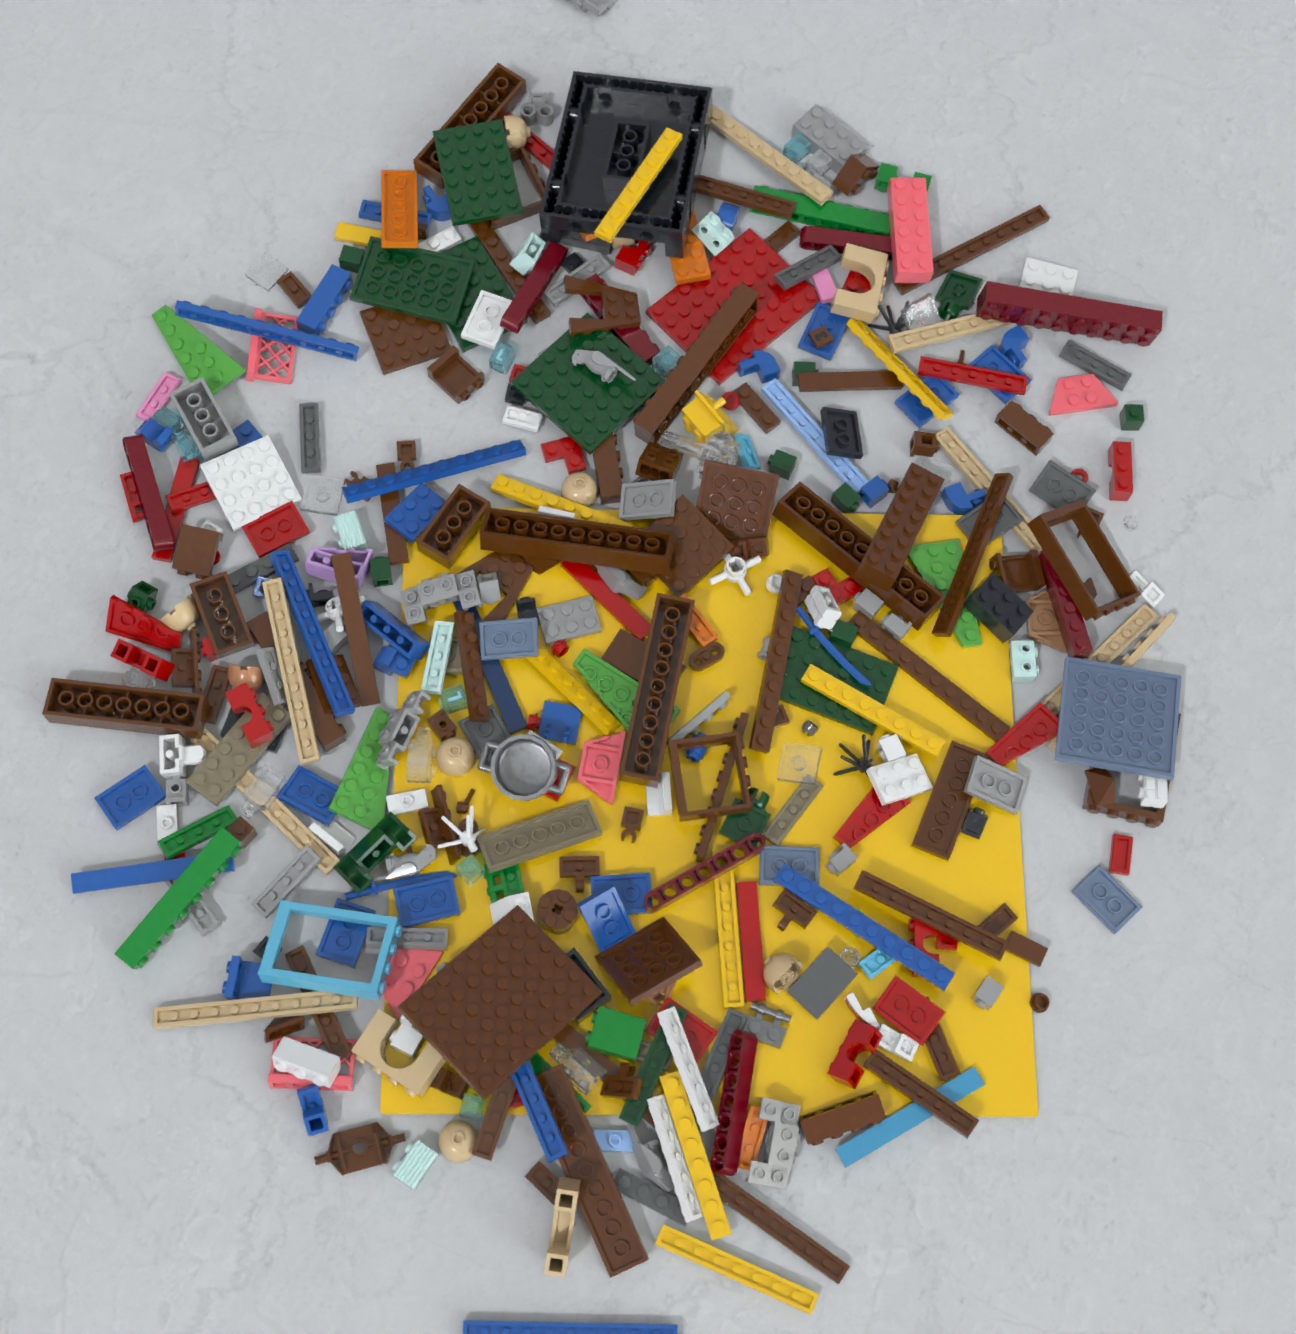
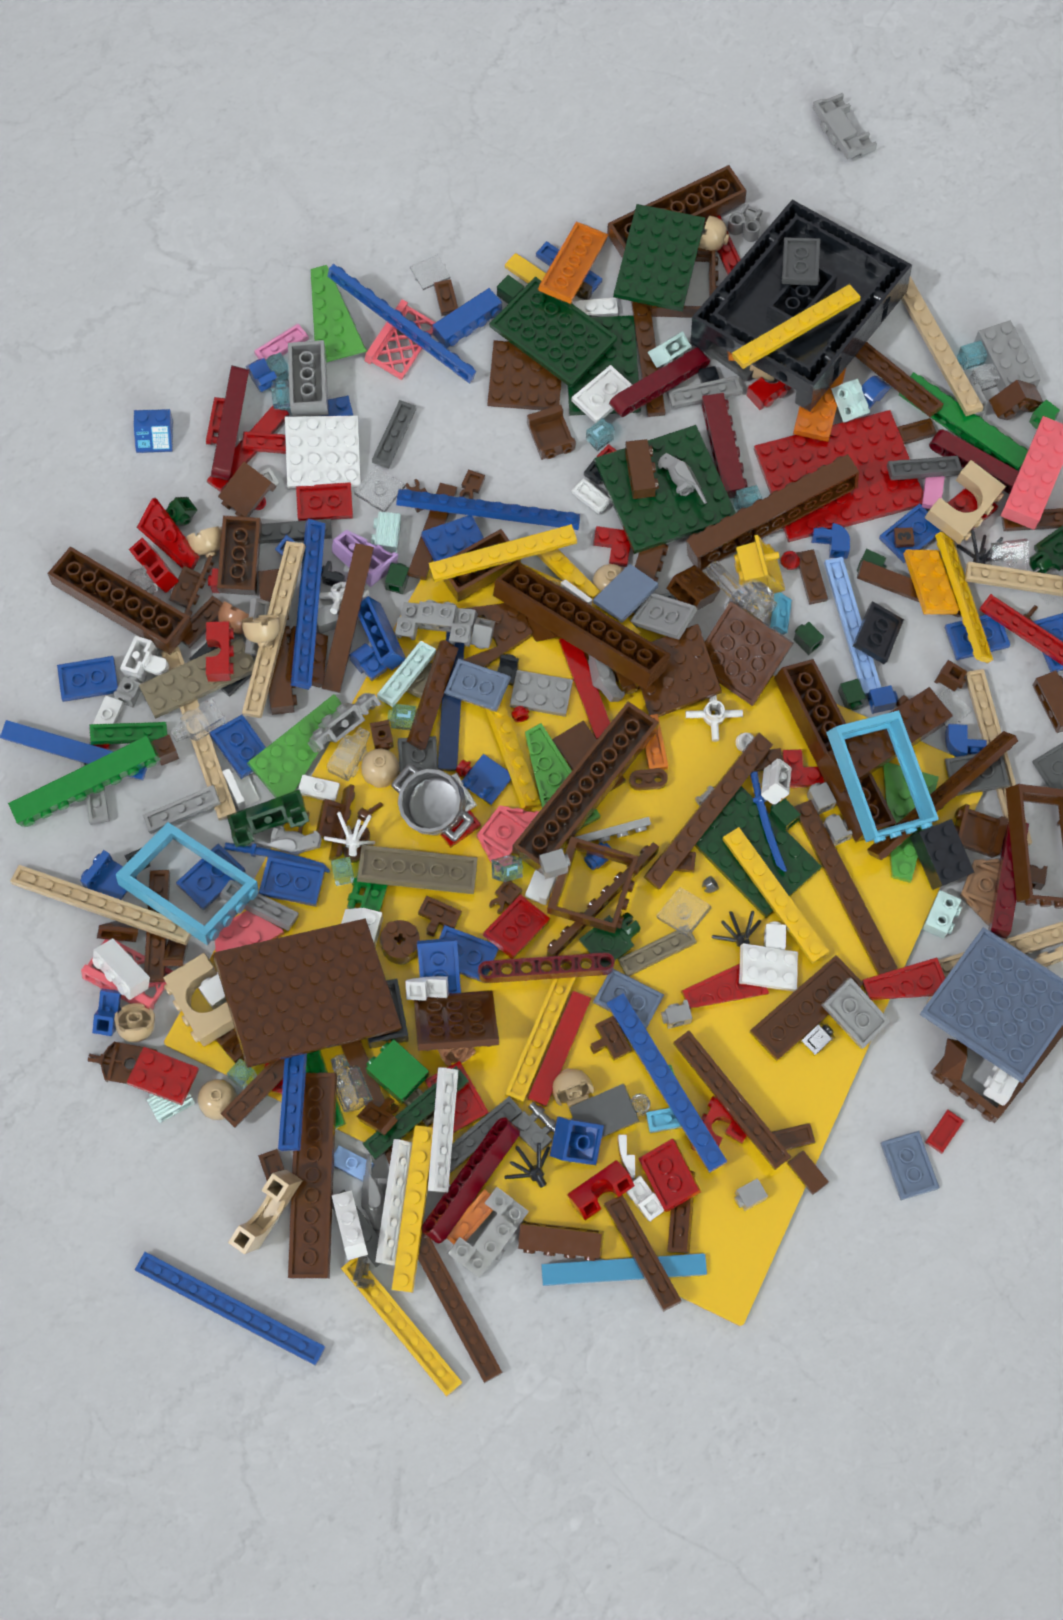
camera: 30 degrees right, 0 degrees up
(75, 532) = (153, 431): none -> blue slope
(281, 676) = (261, 629): none -> tan cylinder
(344, 1106) = (134, 1022): none -> tan cylinder
(350, 1023) = (174, 954): none -> reddish brown tile
(398, 1145) = (163, 1076): none -> red plate
(435, 205) = (608, 272): blue brick -> none
(472, 506) = (502, 553): none -> yellow plate
(560, 373) = (641, 468): none -> reddish brown brick
(602, 494) = (625, 593): none -> sand blue tile
(602, 943) = (426, 987): none -> white slope
(611, 124) = (801, 261): none -> dark grey tile
(618, 307) = (727, 431): reddish brown wing -> none
(621, 797) = (507, 868): none -> clear light blue brick
(646, 1200) = (349, 1225): none -> white brick
(657, 847) = (516, 927): none -> red plate
(667, 773) = (554, 863): none -> light grey brick
(677, 1236) = (362, 1269): none -> clear smoke bracket
(750, 547) = (738, 699): reddish brown slope -> none
(786, 1066) = (534, 1172): none -> black plant
(811, 1019) = (576, 1140): none -> blue slope
(864, 367) = (931, 582): none -> light orange plate
(938, 543) = (909, 765): none -> medium azure window
(1039, 1002) = (796, 1227): reddish brown plate -> none

